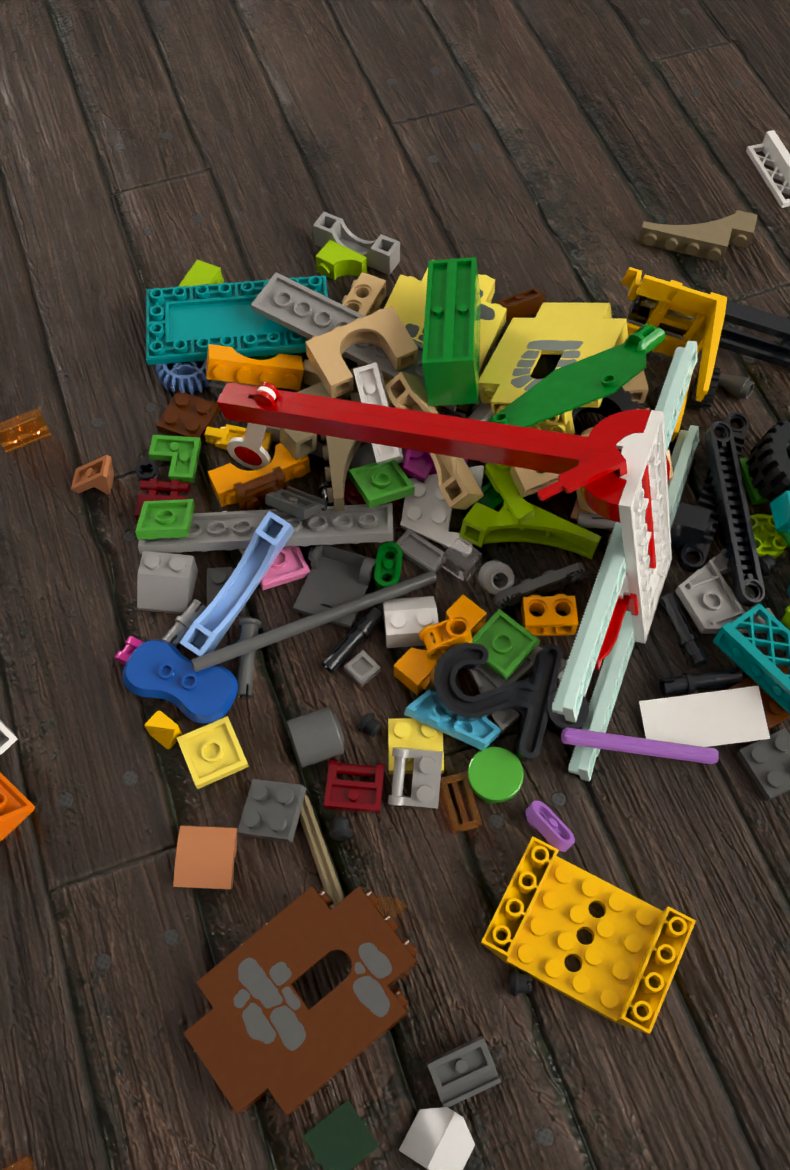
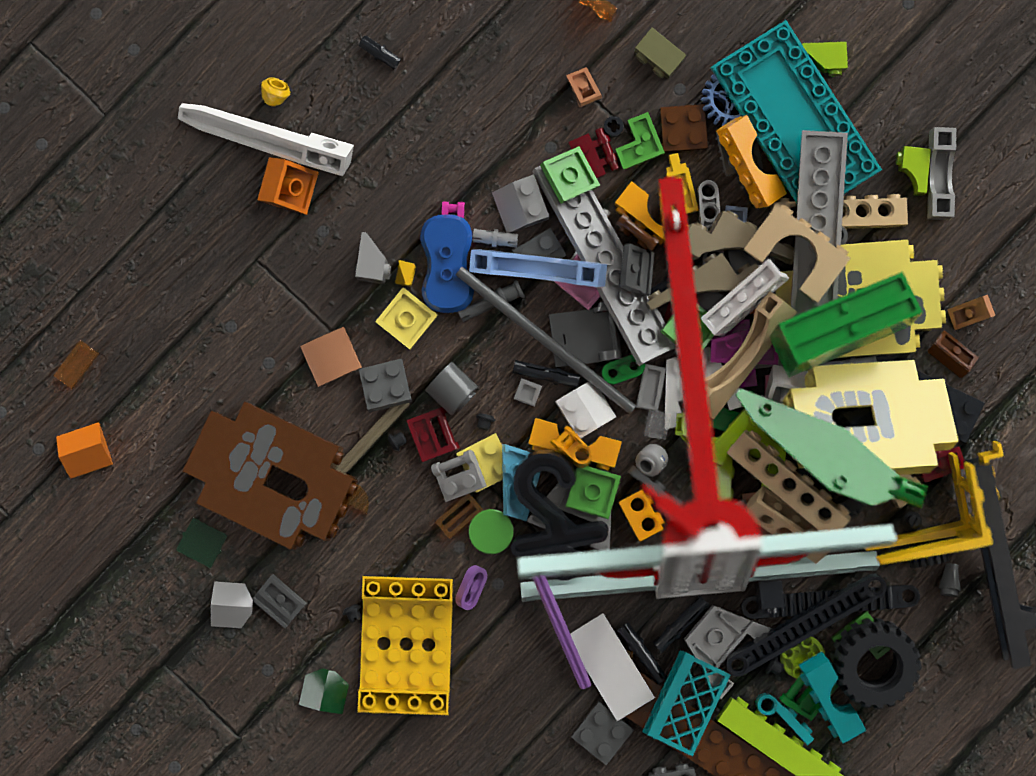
camera: 60 degrees right, 25 degrees up
(106, 403) = (659, 54): none -> olive brick
(128, 752) = (371, 262): none -> light grey slope
(492, 265) = (971, 312): none -> nougat slope
(603, 1072) = (324, 691): none -> dark green slope

